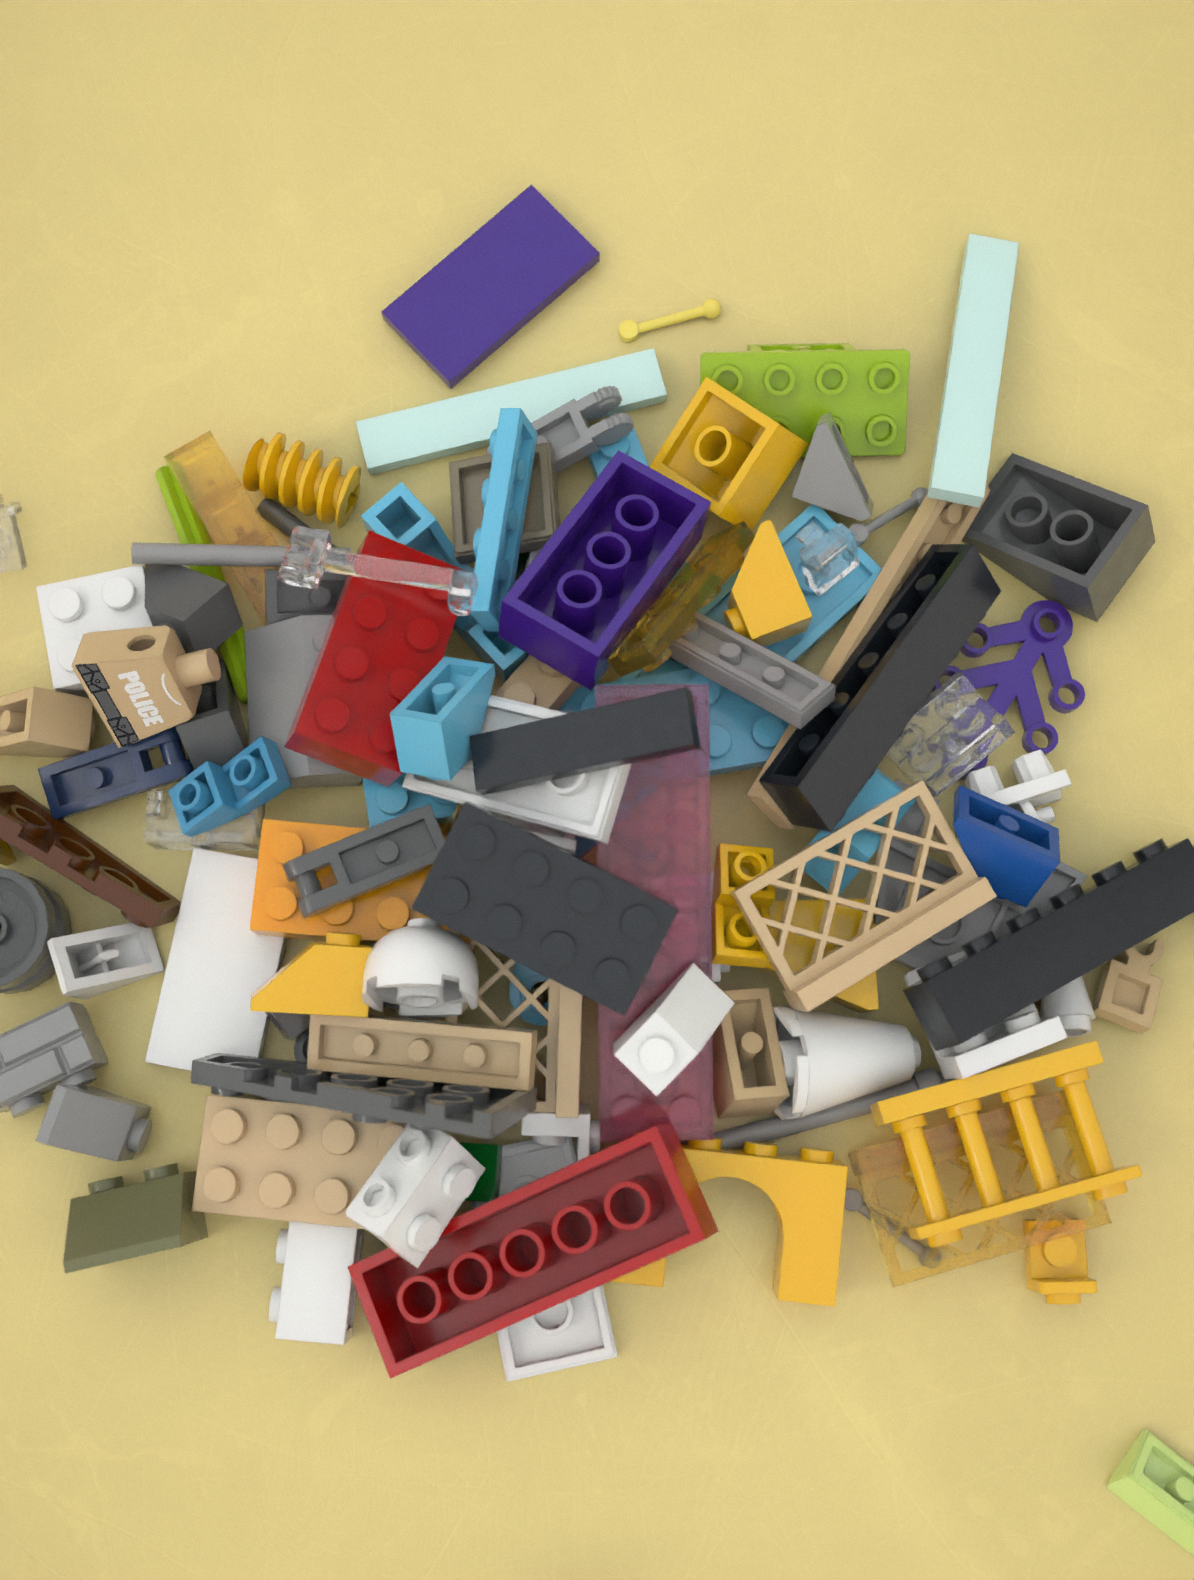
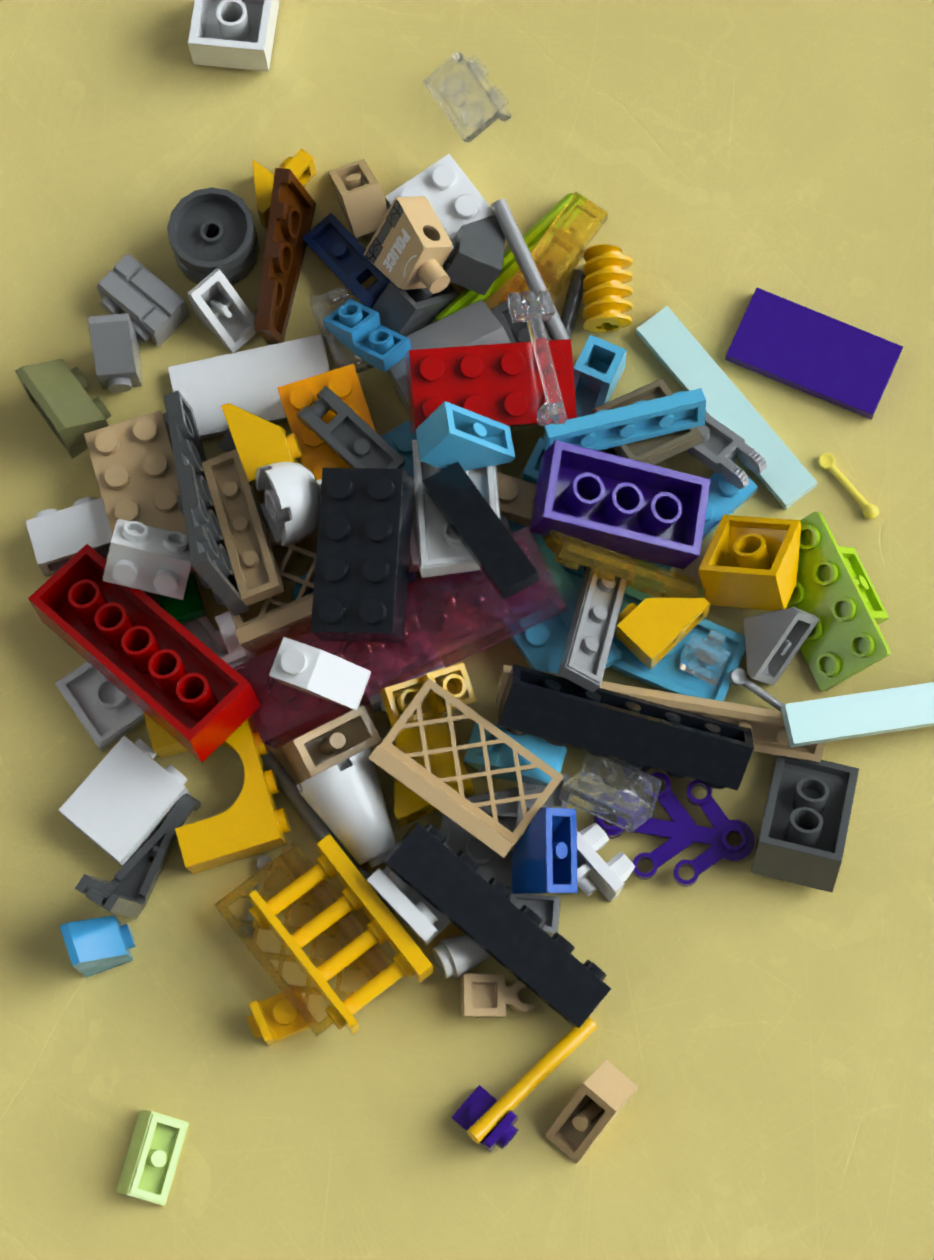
camera: 75 degrees right, 5 degrees down
(707, 1350) = (124, 799): none -> white brick
(821, 1389) = (136, 879): none -> dark grey hinge
(889, 1465) = (98, 944): none -> dark azure slope

